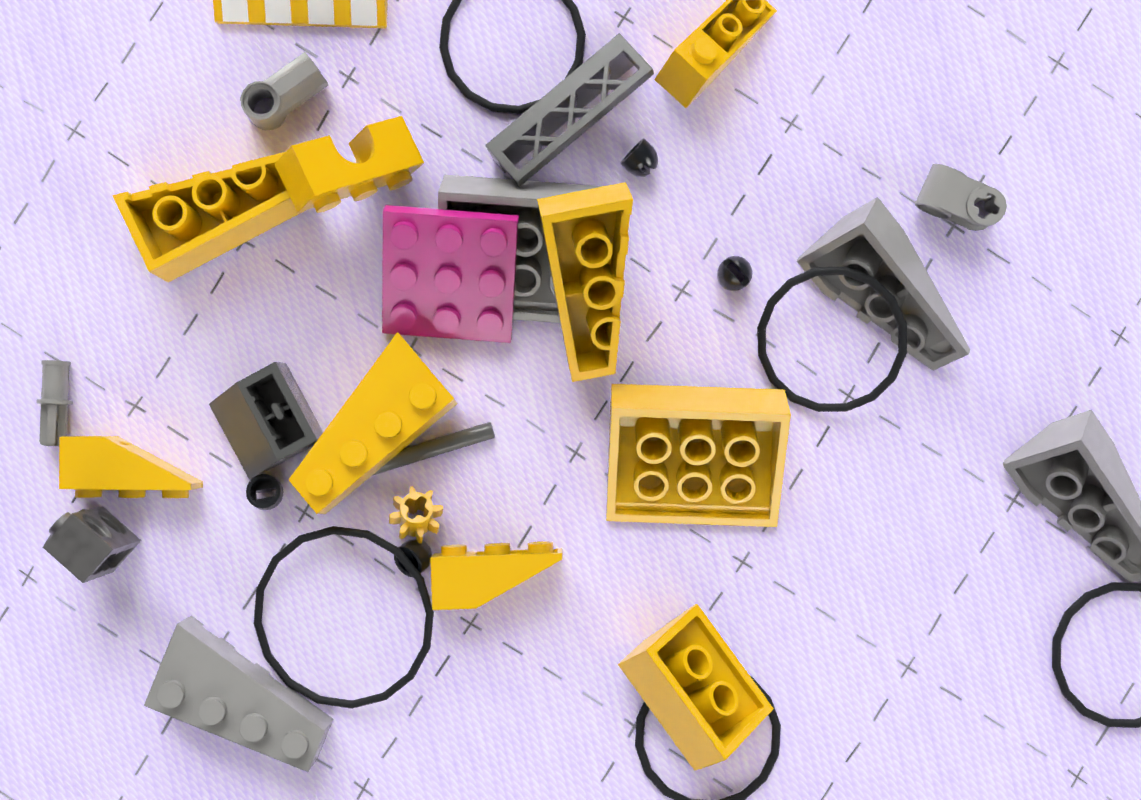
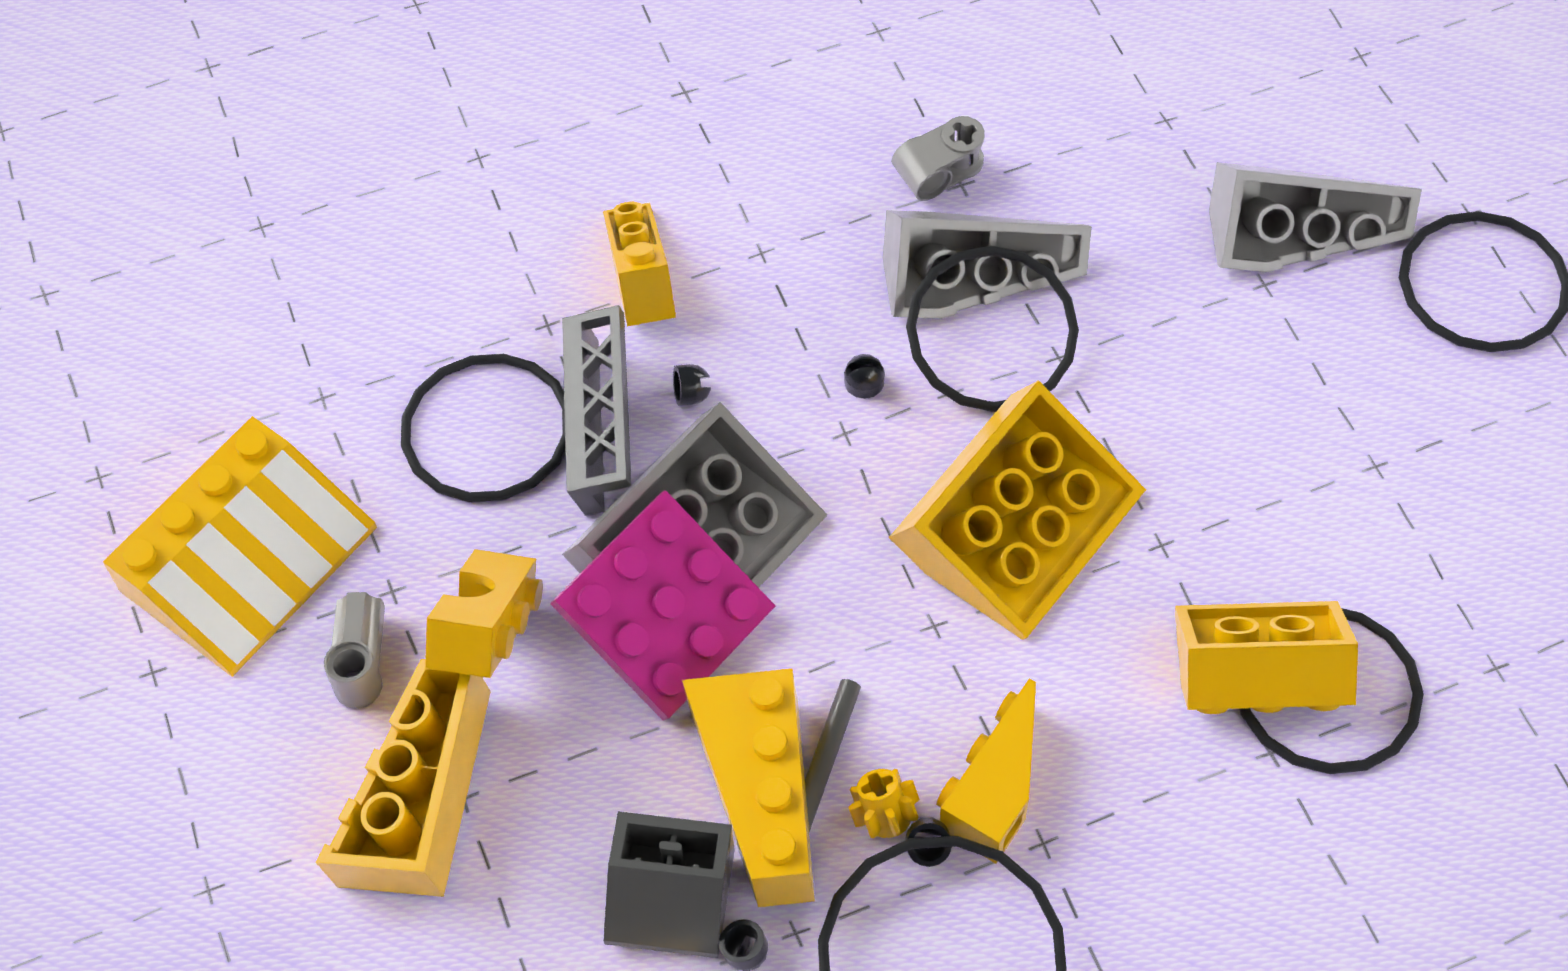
camera: 45 degrees left, 30 degrees down
(587, 259) = (768, 470): yellow wedge -> none

